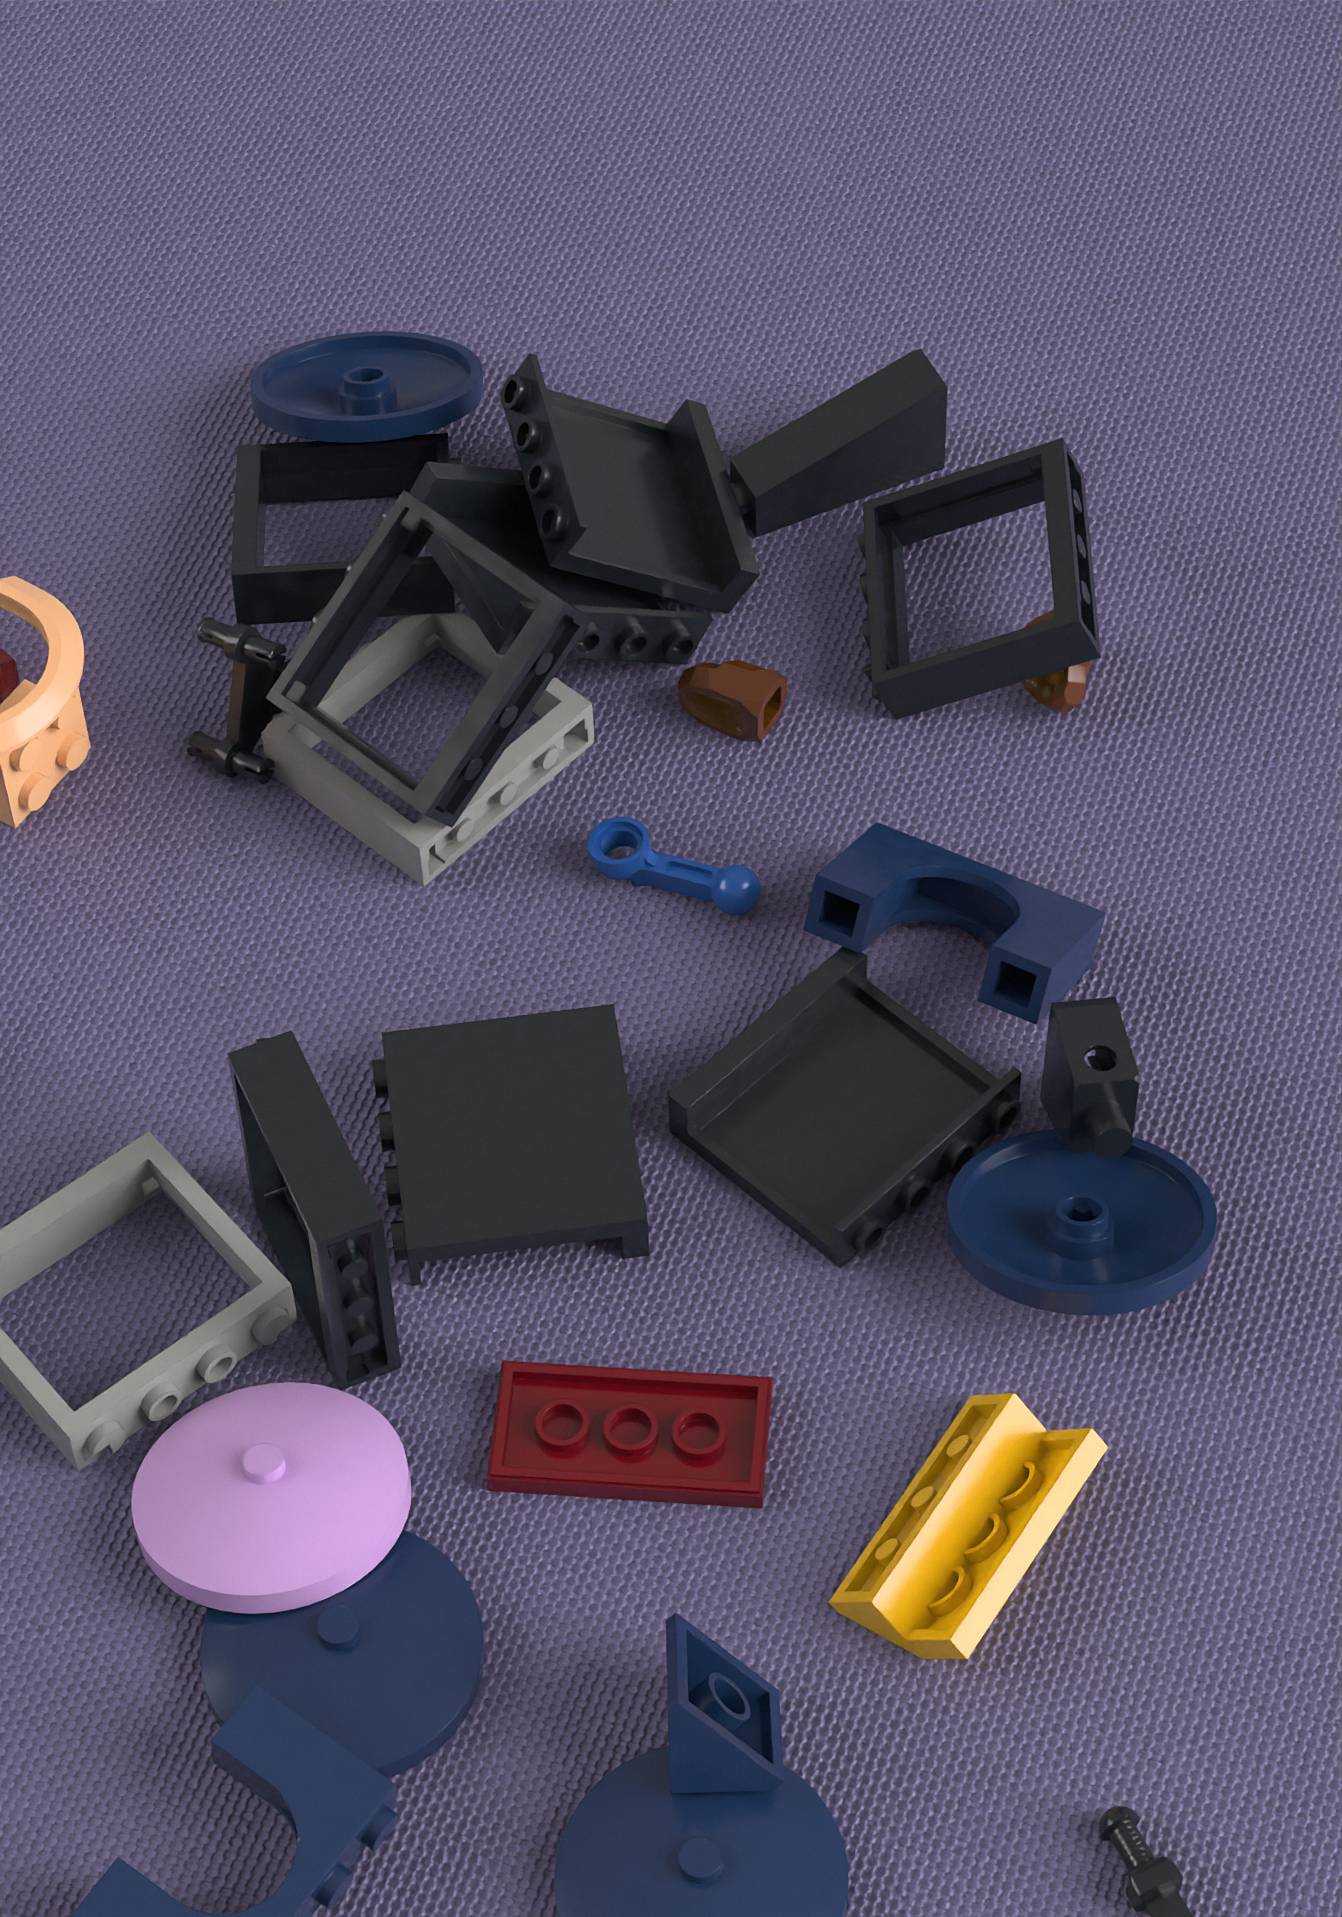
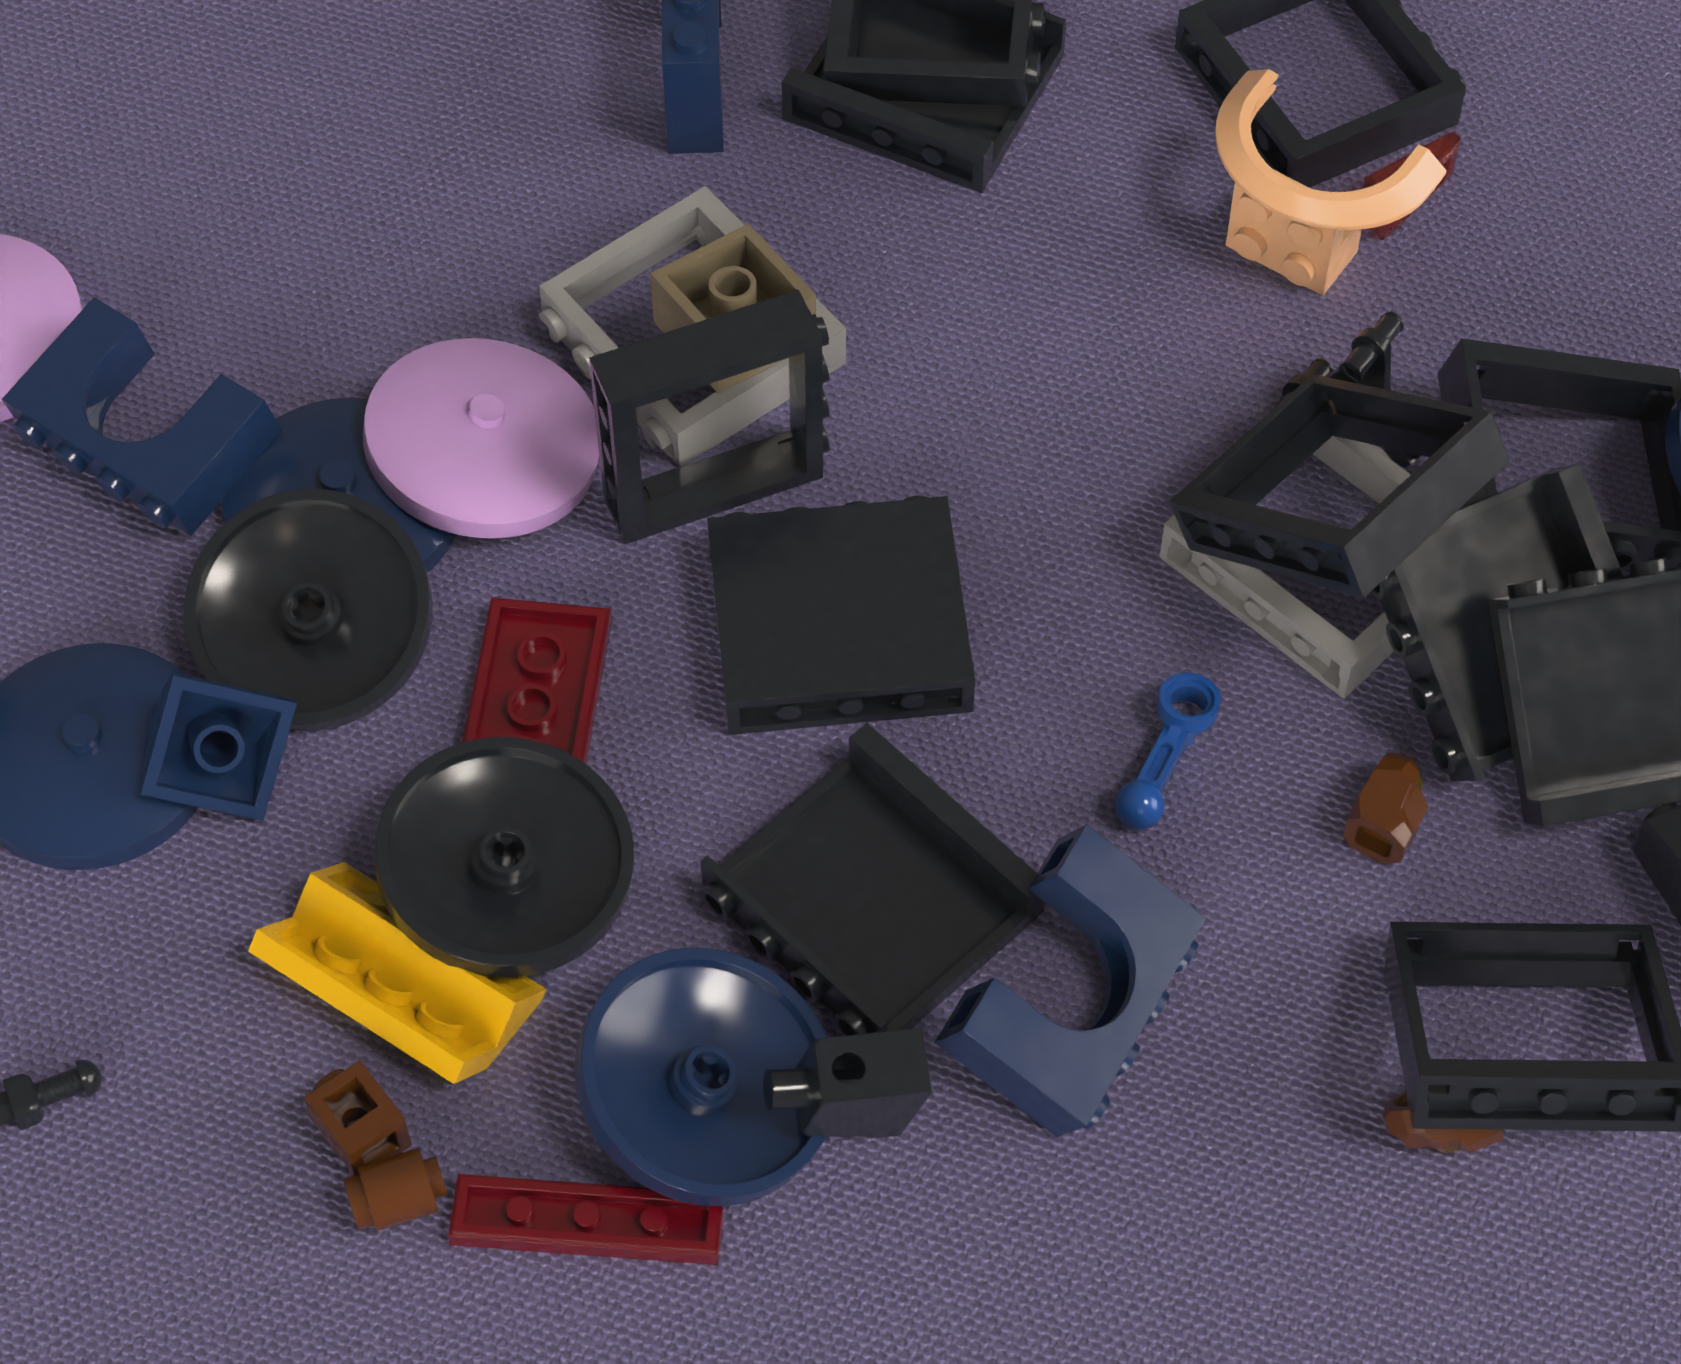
camera: 90 degrees right, 5 degrees up
(149, 1206) = (721, 279): none -> dark tan brick
(523, 1642) = (310, 605): none -> black dish
(842, 1415) = (504, 856): none -> black dish
(1154, 1521) = (354, 1095): none -> reddish brown brick
(1225, 1500) = (395, 1190): none -> reddish brown brick
(1228, 1350) = (582, 1220): none -> dark red tile

